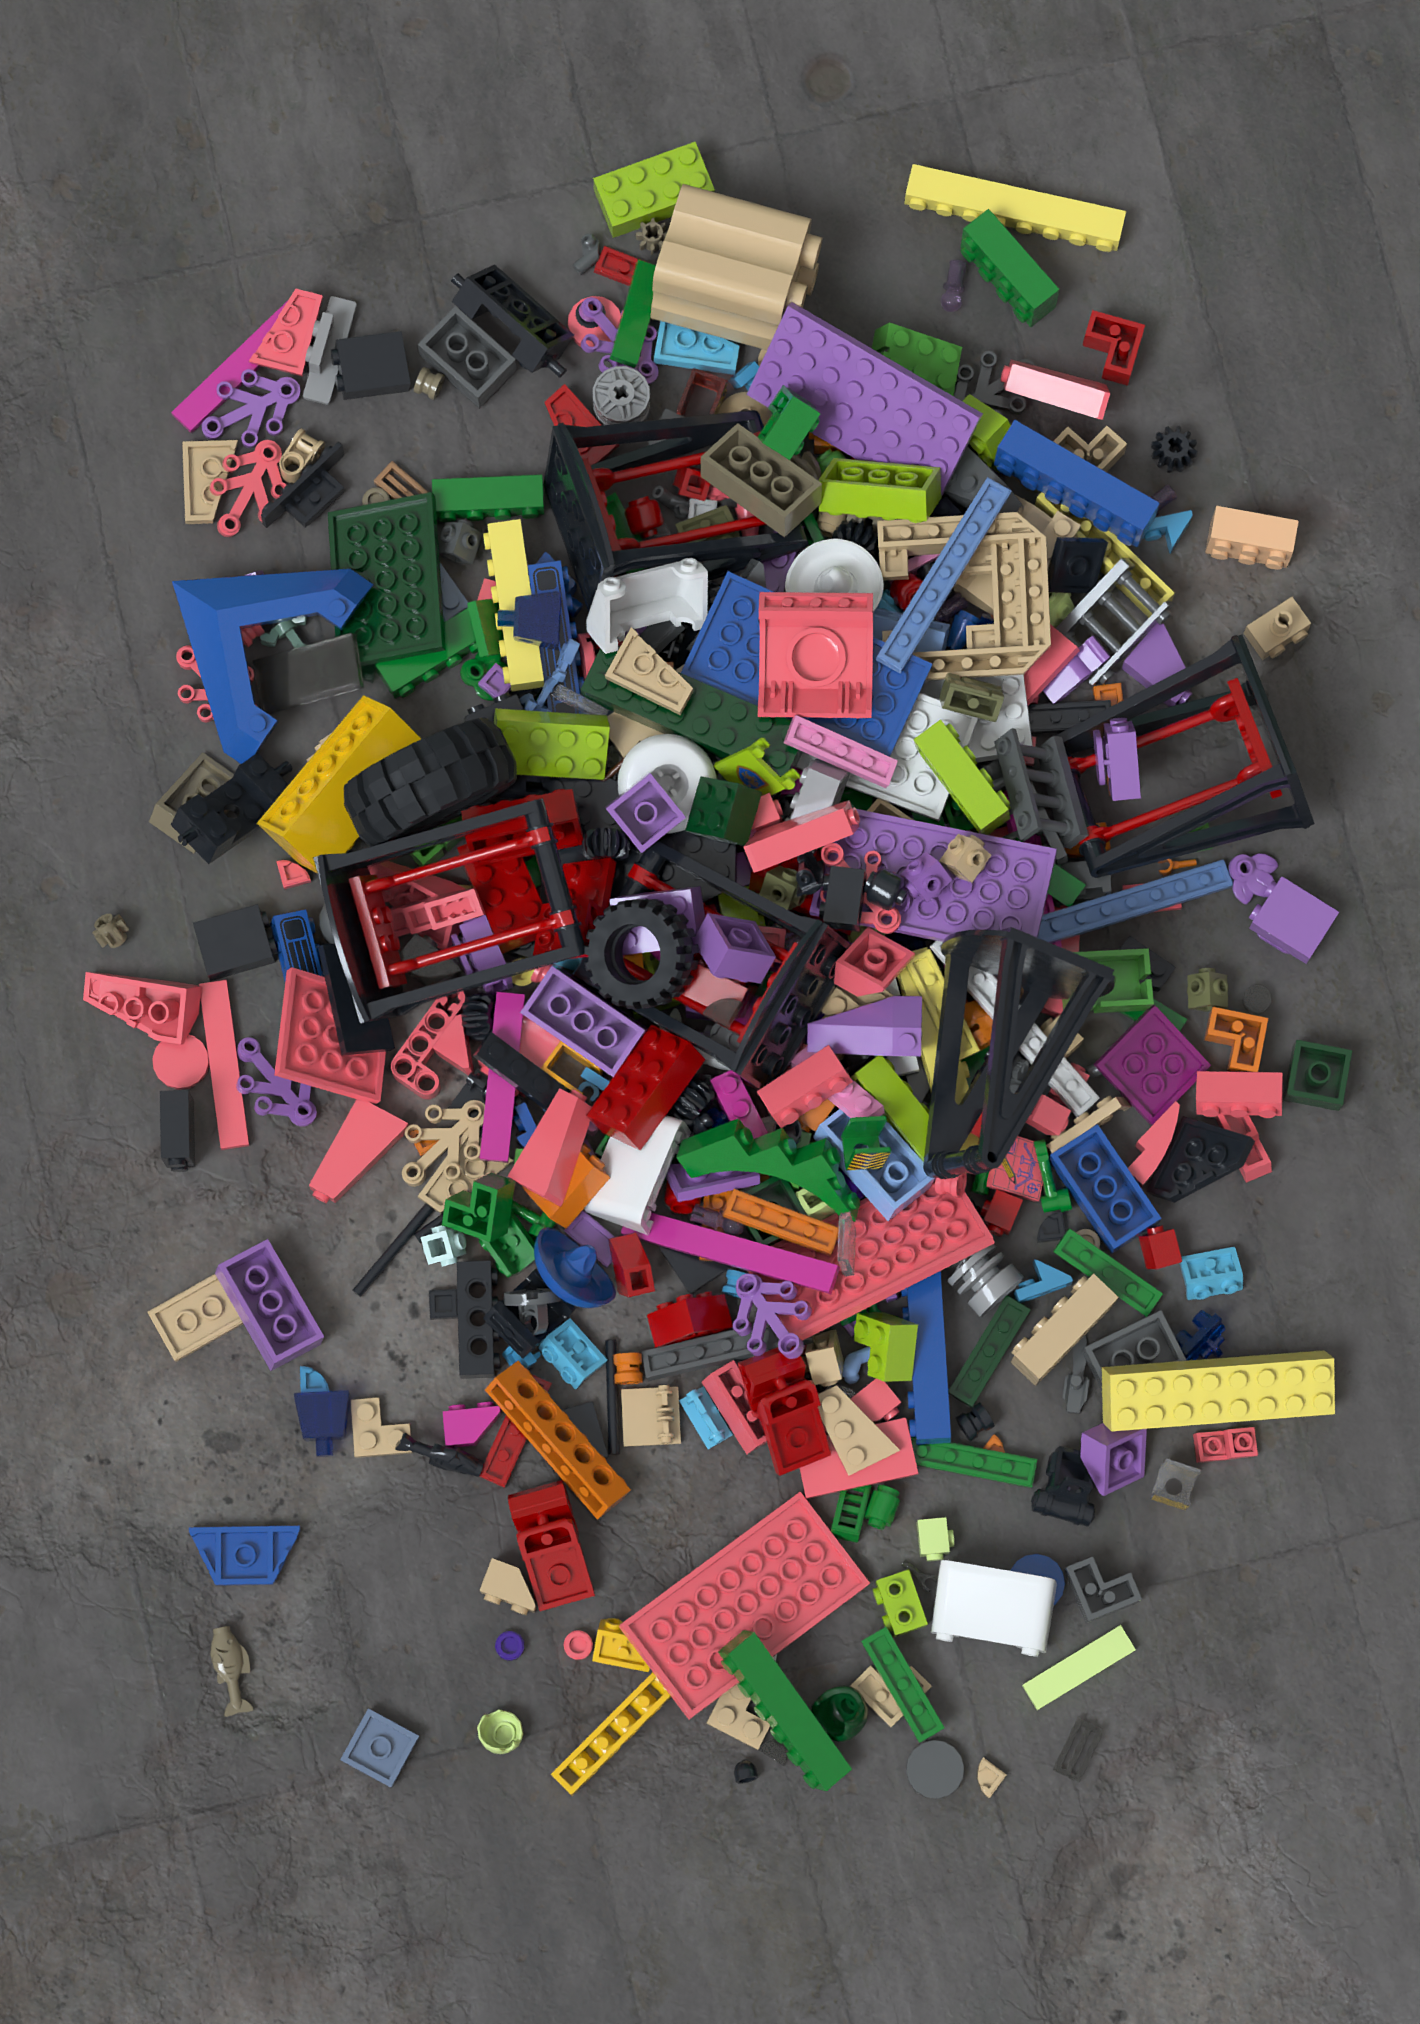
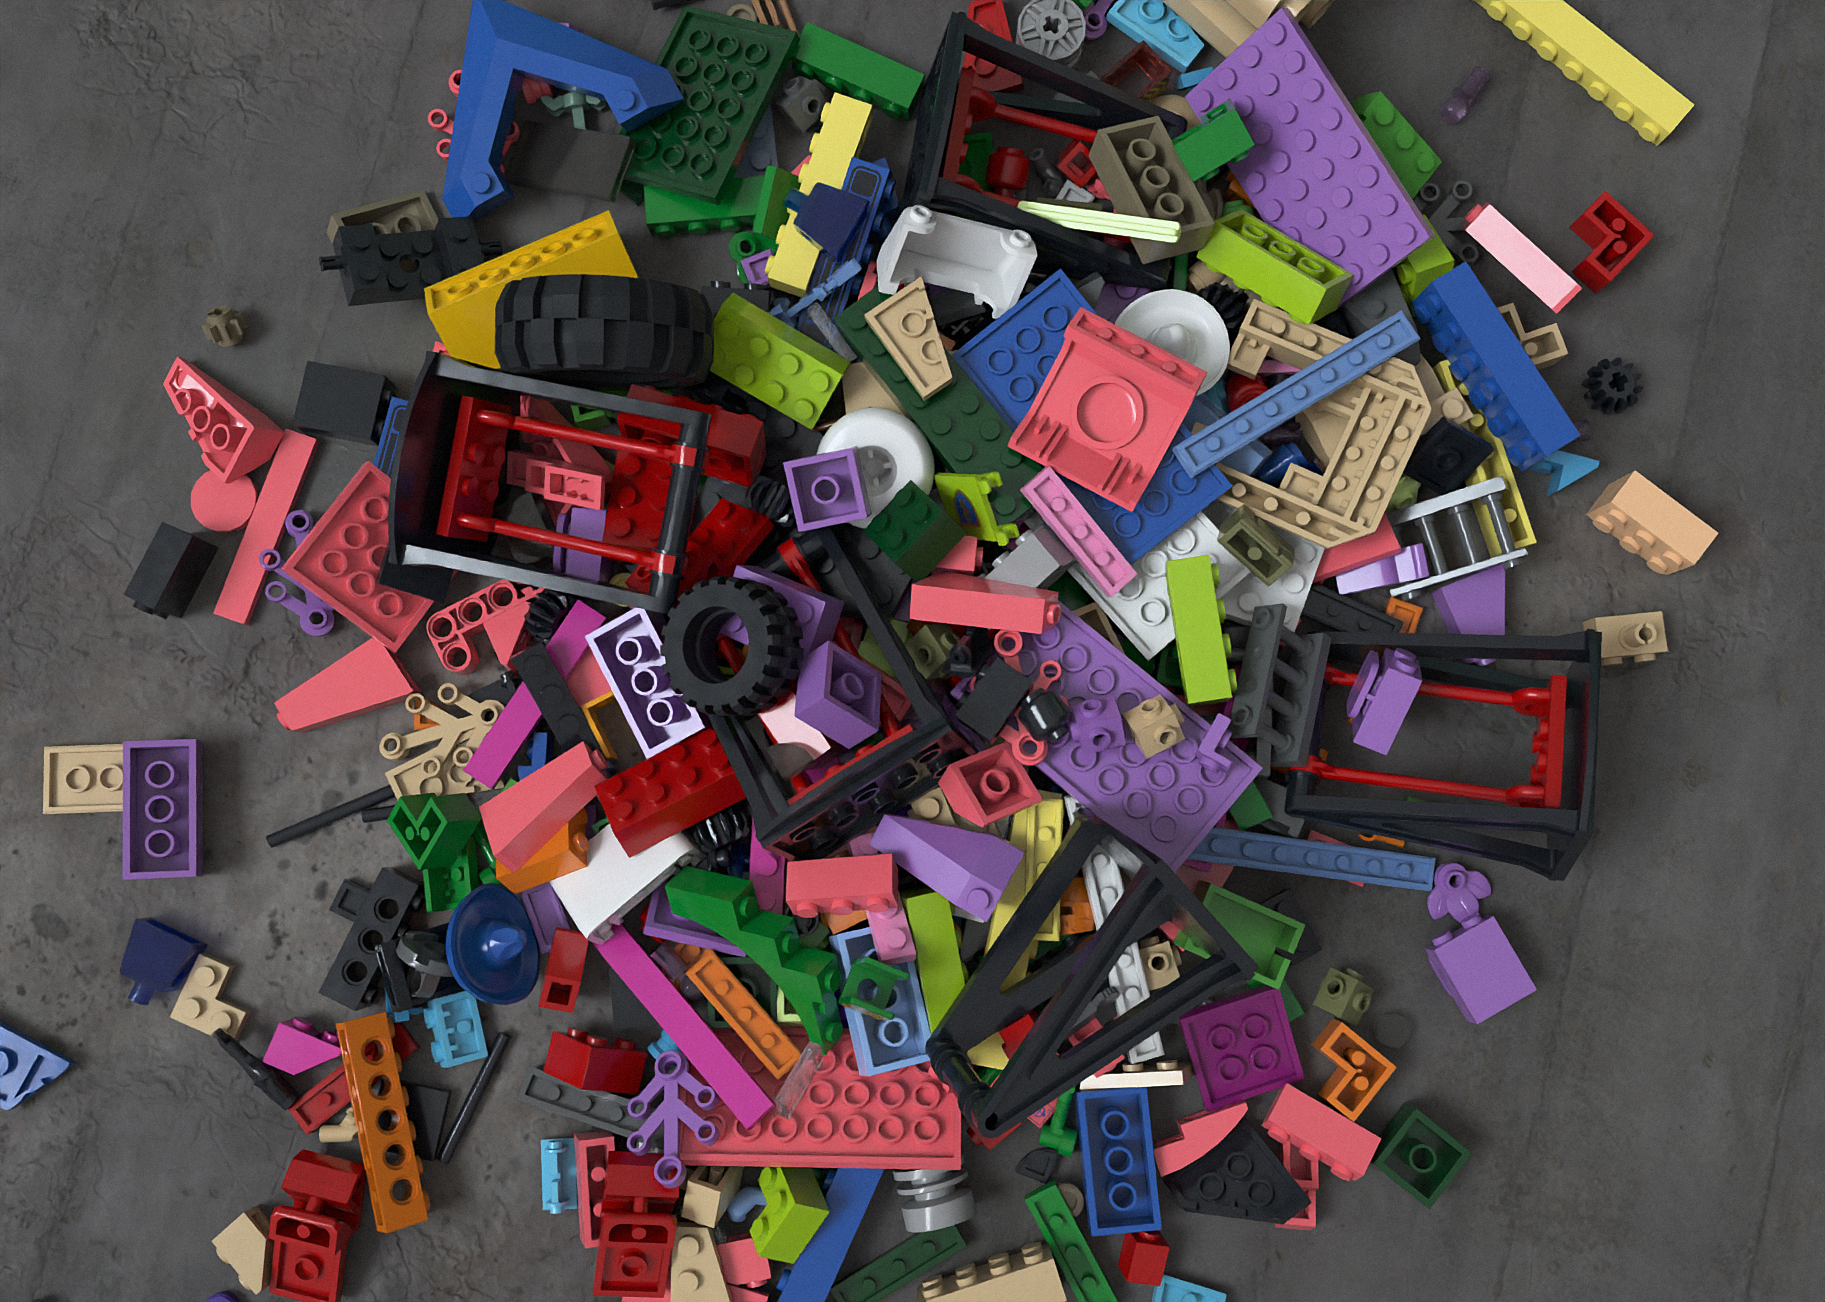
camera: 30 degrees right, 5 degrees up
(312, 1380) = (173, 912): dark azure tile -> none
(443, 1245) = (376, 843): light aqua brick -> none
(531, 1469) = (342, 1132): none -> tan arm
(594, 1081) = (634, 749): dark azure tile -> none
(628, 1368) = (504, 1078): orange wheel -> none
(651, 1416) = (502, 1141): tan hinge -> none
(741, 522) = (1106, 222): none -> yellowish green axle
(1009, 268) = (1536, 102): green brick -> none
(1012, 844) = (1215, 738): none -> medium lavender bracket
(1049, 1281) = (1003, 1226): dark azure slope -> none

